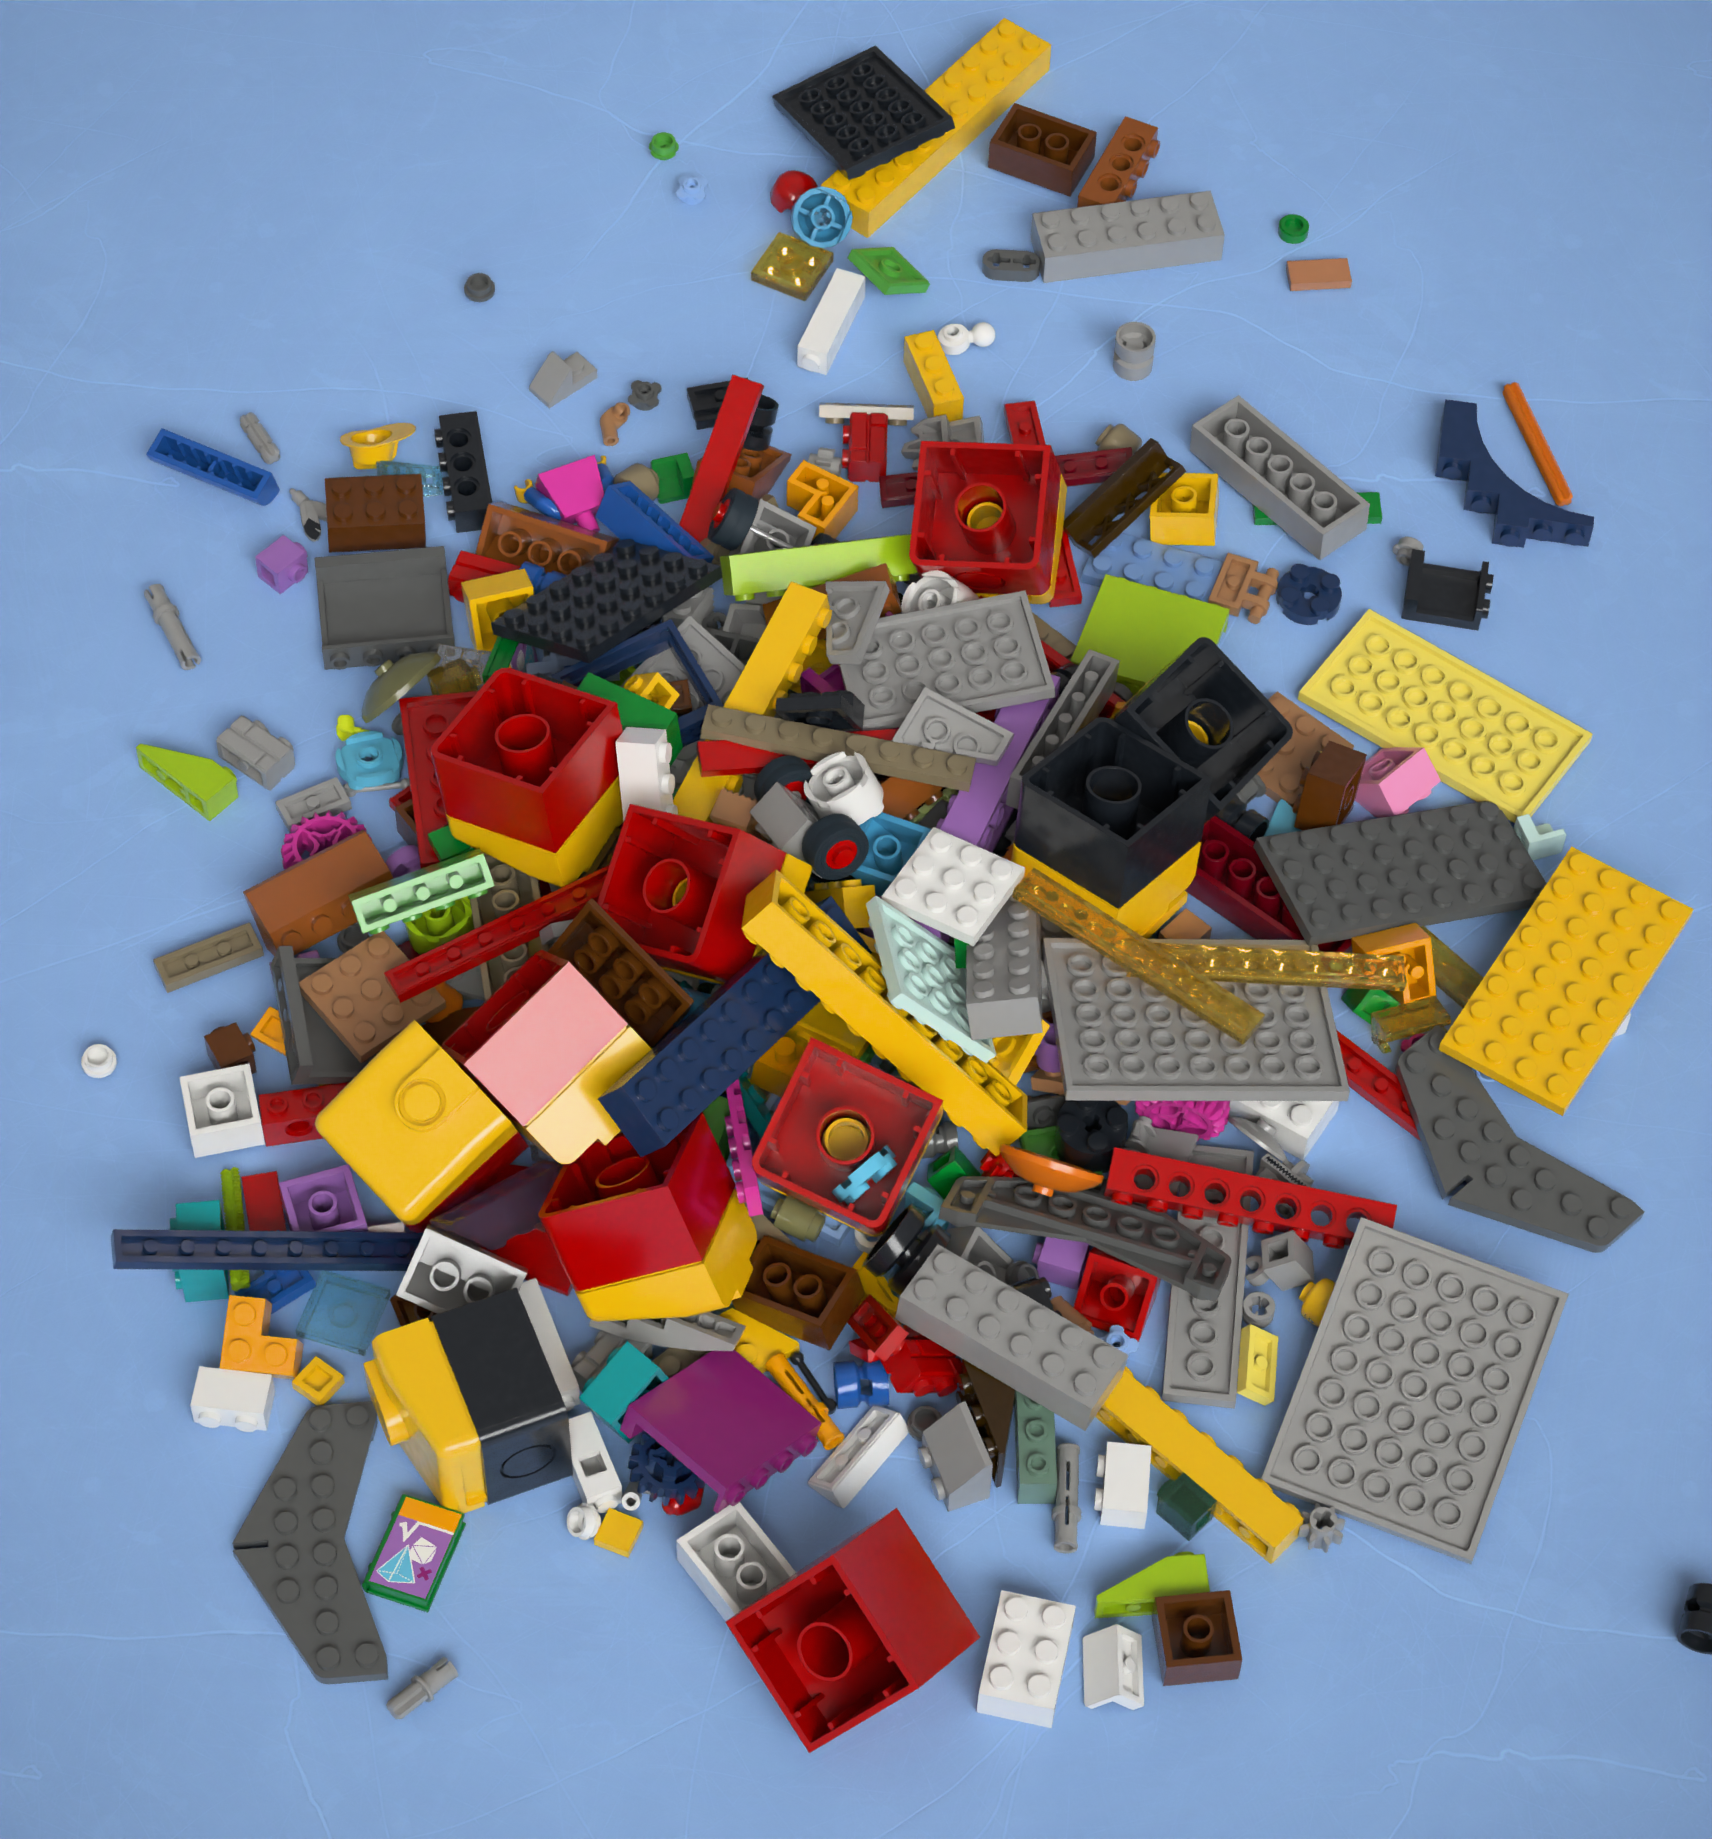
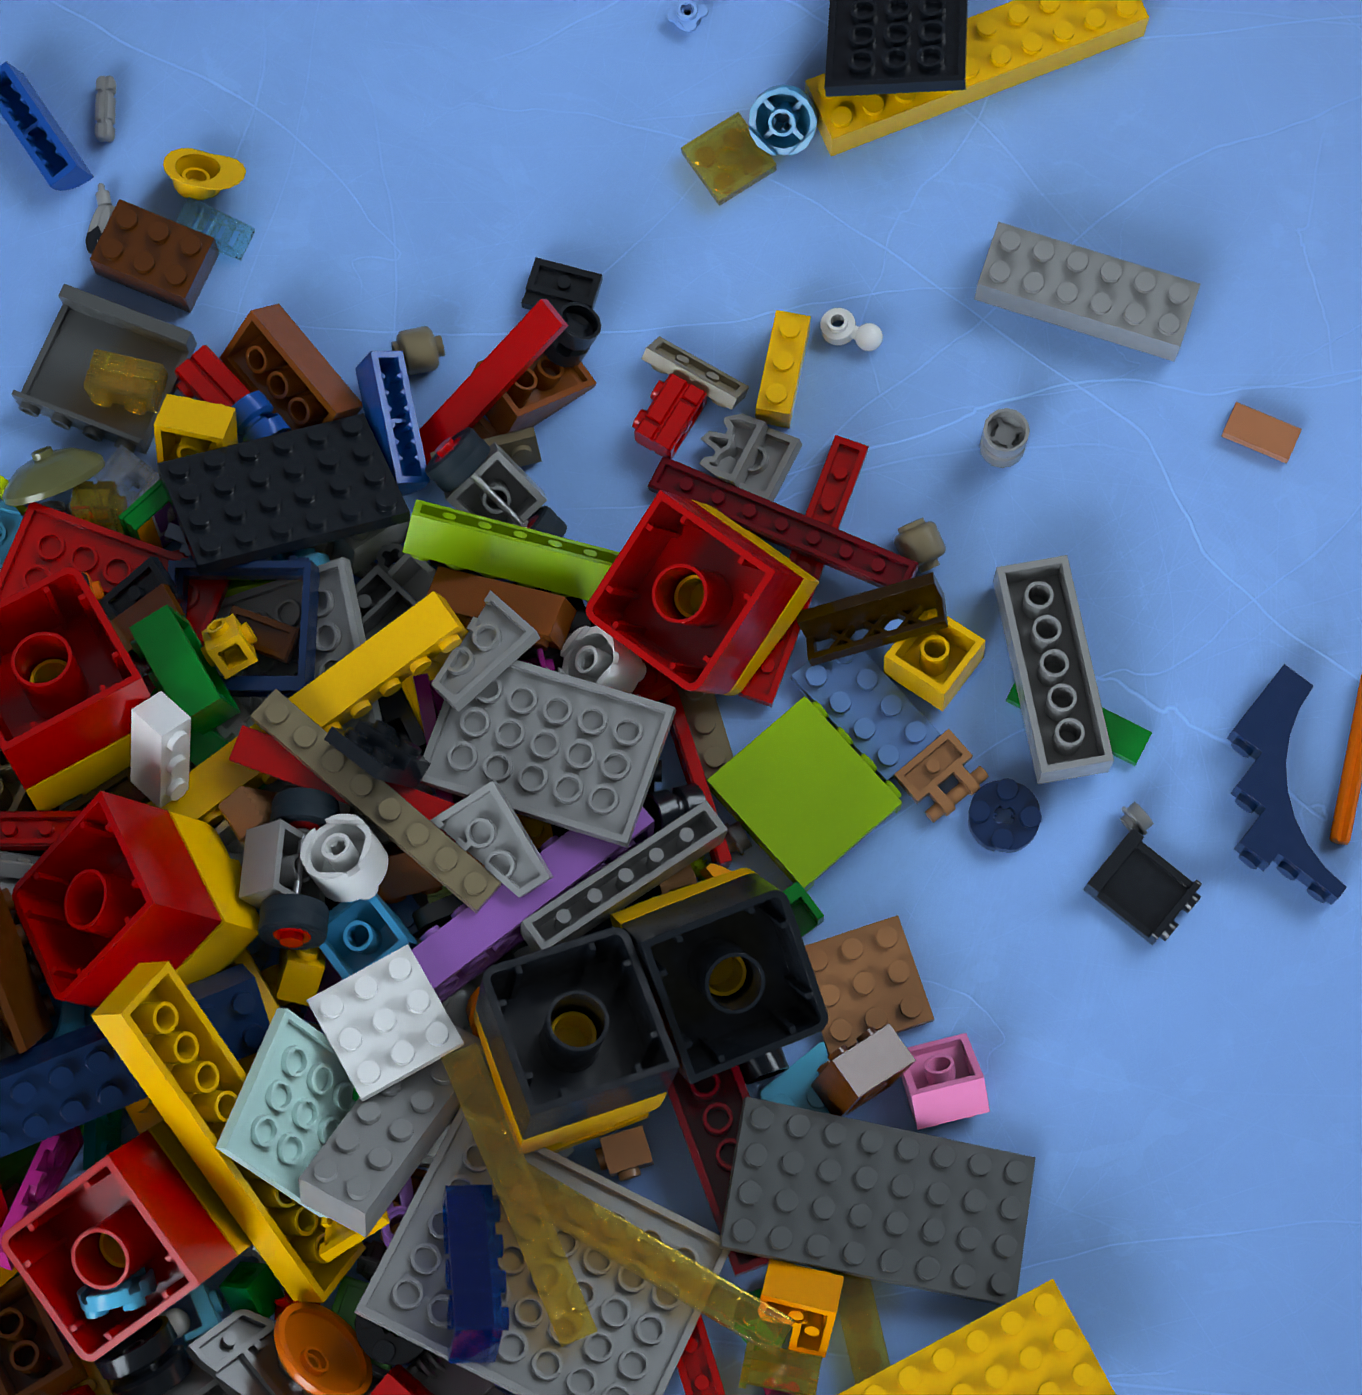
camera: 35 degrees right, 20 degrees up
(282, 564) = (40, 270): medium lavender brick -> none
(411, 602) = (125, 382): none -> clear yellow brick
(465, 469) = (277, 198): black brick -> none
(479, 287) = (411, 33): dark grey plate -> none
(561, 378) = (430, 182): light grey slope -> none
(570, 491) = (352, 327): dark pink torso -> none
(613, 420) = (445, 257): medium nougat arm -> none
(644, 395) = (498, 250): dark grey plate -> none
(674, 476) = (460, 355): green panel -> none
(789, 187) = (786, 64): red hair -> none
(822, 498) = (585, 471): light orange brick -> none
(826, 460) = (612, 420): light grey gear -> none
(831, 321) = (725, 247): white brick -> none
(888, 270) = (817, 214): bright green tile -> none
(1011, 265) = (955, 258): dark grey beam -> none
(1042, 149) = (1063, 141): reddish brown brick -> none
(1121, 164) = (1166, 169): dark orange brick -> none
(1145, 1022) = (473, 1273): none -> clear blue wedge
(1293, 229) = (1271, 362): green tile -> none
(1471, 725) = (1047, 1035): light yellow plate -> none
(1539, 840) = (1049, 1224): light aqua panel -> none

